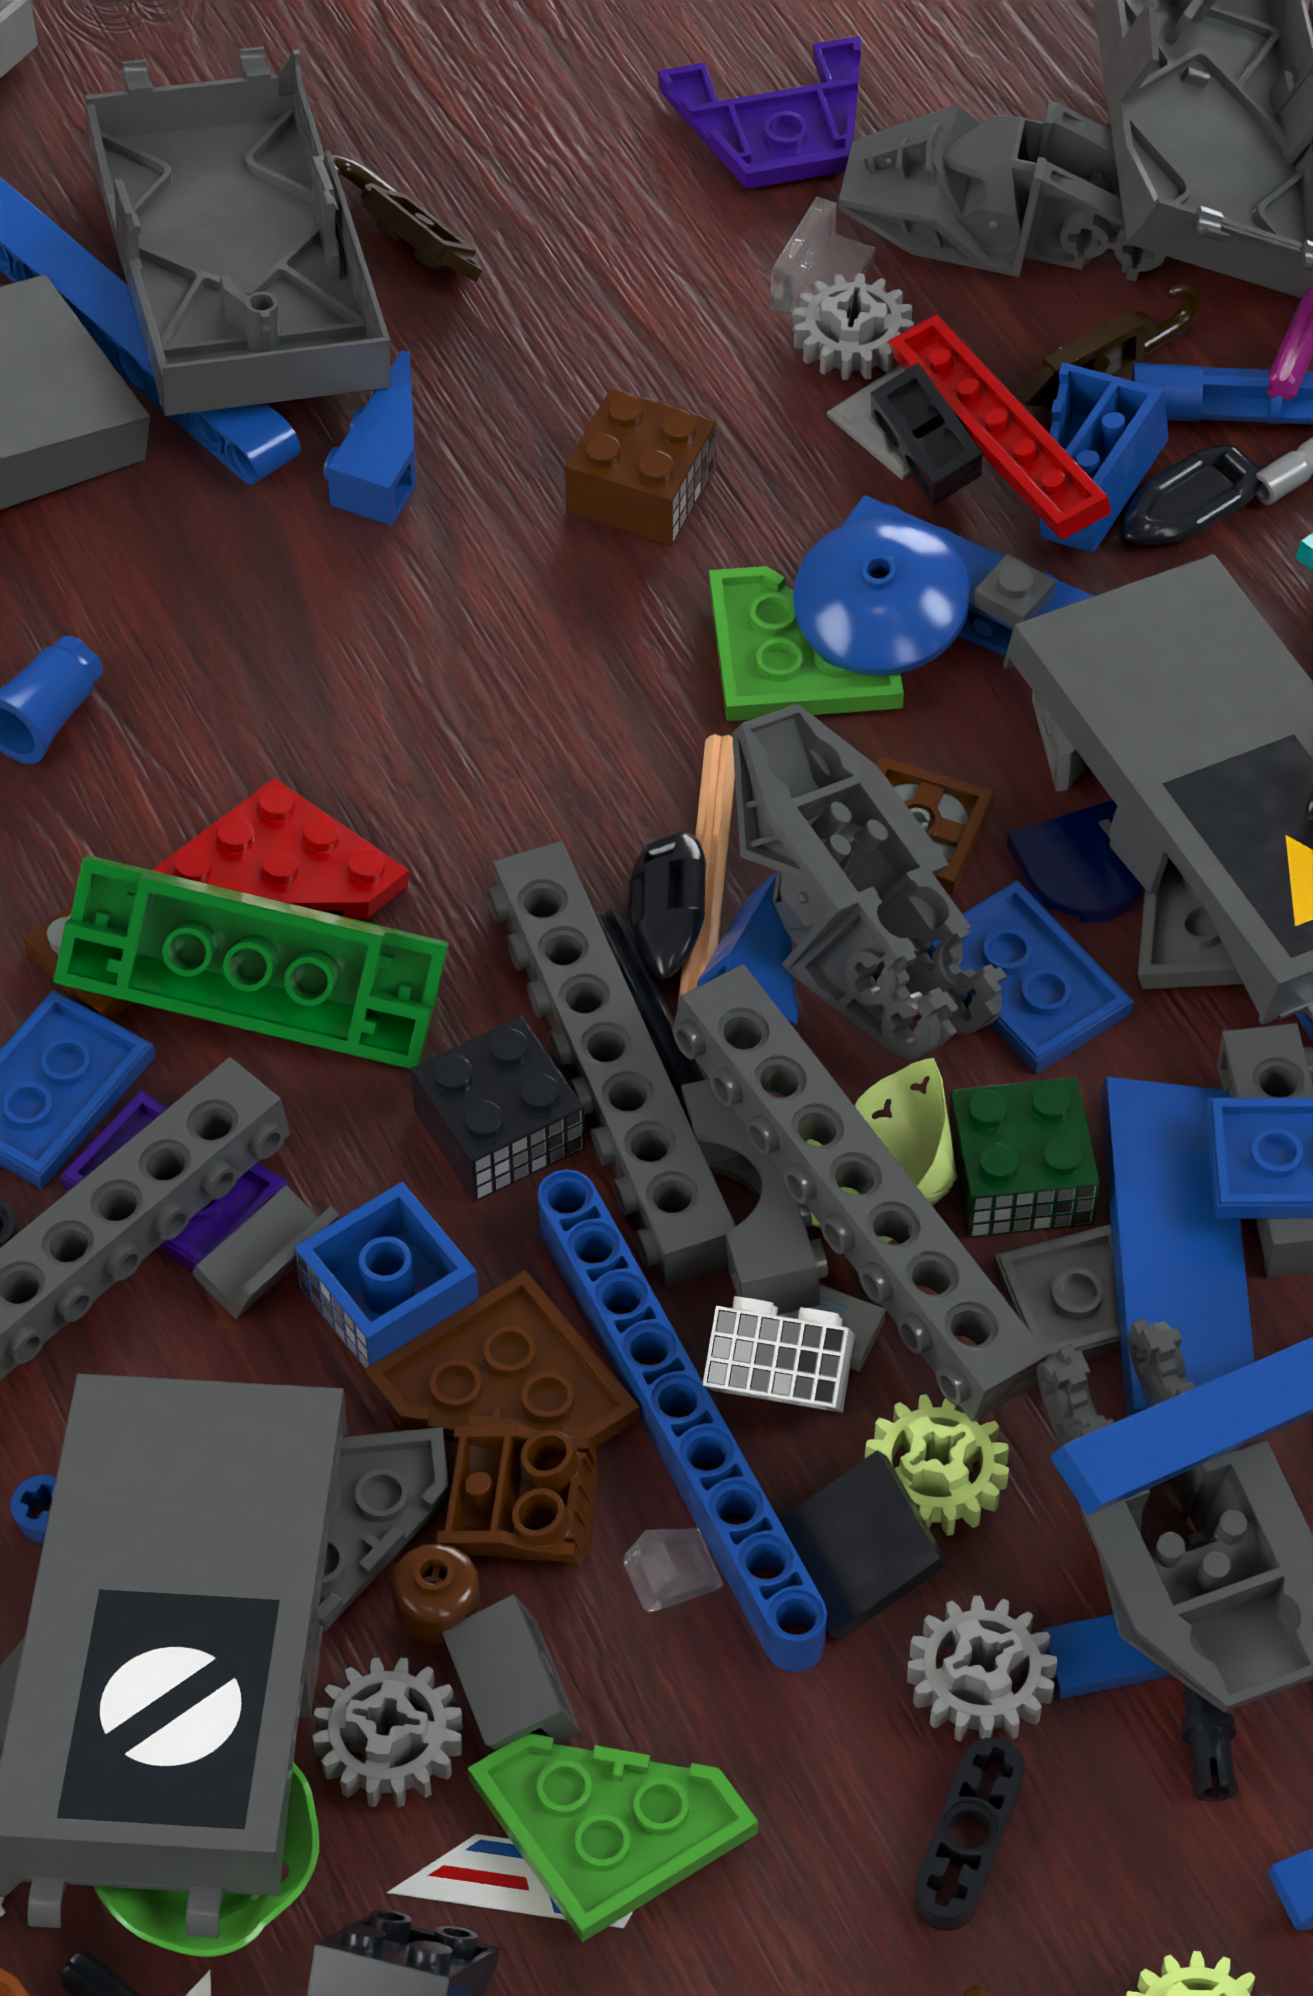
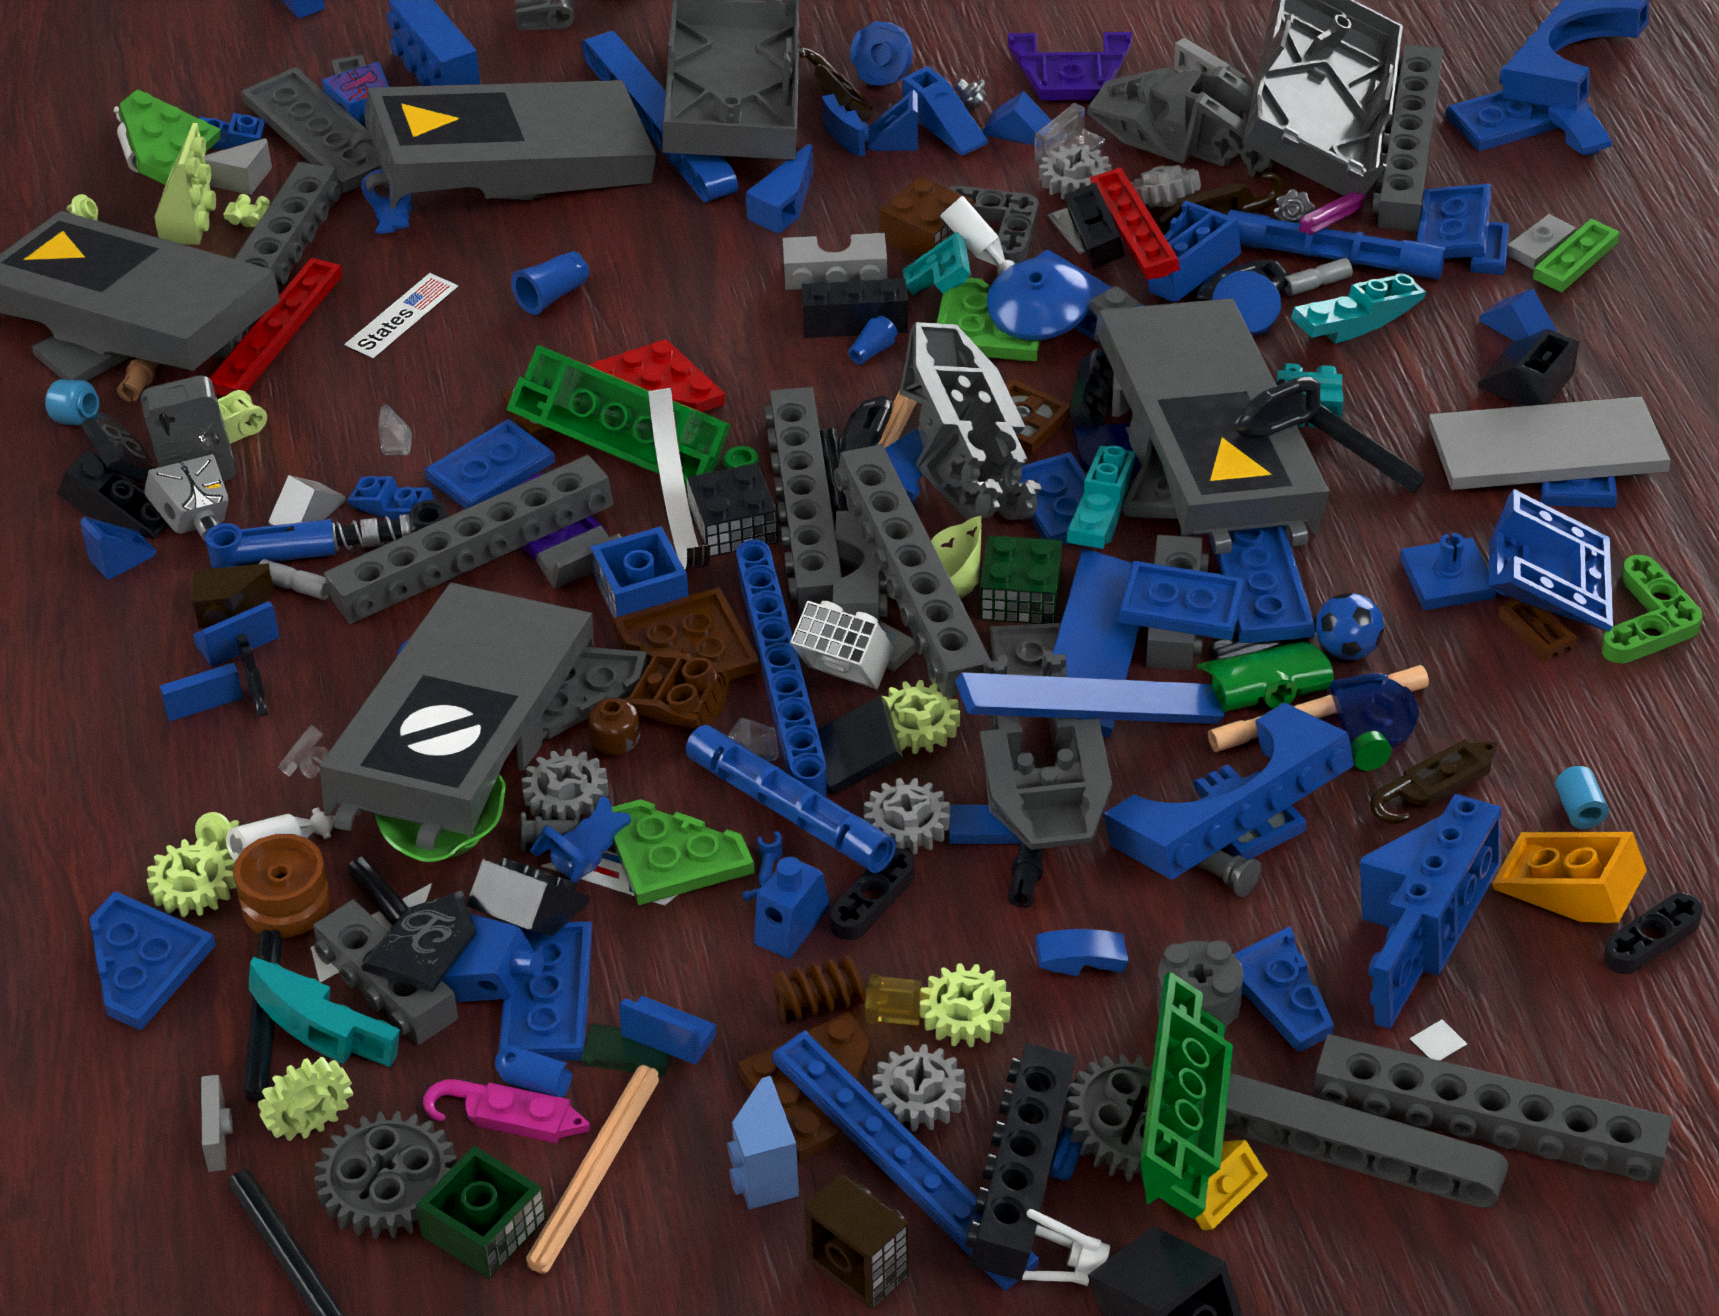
camera: 15 degrees right, 10 degrees down
(381, 1830) = (529, 830): none -> dark grey pin
(390, 1096) = (672, 482): none -> white sticker
(442, 300) = (844, 126): none -> blue slope
(455, 1858) = (581, 850): none -> blue hair
(466, 148) = (881, 53): none -> blue tile
(474, 592) = (809, 264): none -> light grey arch
(476, 1002) = (740, 456): none -> green tile
(510, 1675) = (642, 770): dark grey panel -> none
(531, 285) = (897, 127): none -> blue slope
(573, 658) = (846, 307): none -> black slope
(598, 244) = (943, 111): none -> blue slope
(624, 715) = (874, 338): none -> blue cone
(633, 201) = (971, 94): none -> flat silver plant
(698, 548) = (943, 265): none -> teal plate
(726, 240) = (1016, 120): none -> blue slope
(743, 489) = (976, 232): none -> white wheel
(770, 1791) = (768, 854): none -> blue piece
(772, 427) = (1013, 211): none -> dark grey beam
(782, 1680) = (791, 798): none -> blue piece
(851, 1894) = (789, 906): none -> blue torso
(995, 83) = (1194, 58): none -> light grey panel
(1015, 330) = (1166, 184): none -> light grey gear
(1016, 754) = (1091, 390): none -> black beam
(1109, 976) = (1102, 497): none -> teal slope
(1214, 521) = (1255, 298): none -> blue tile
(1229, 339) = (1293, 206): none -> flat silver plant

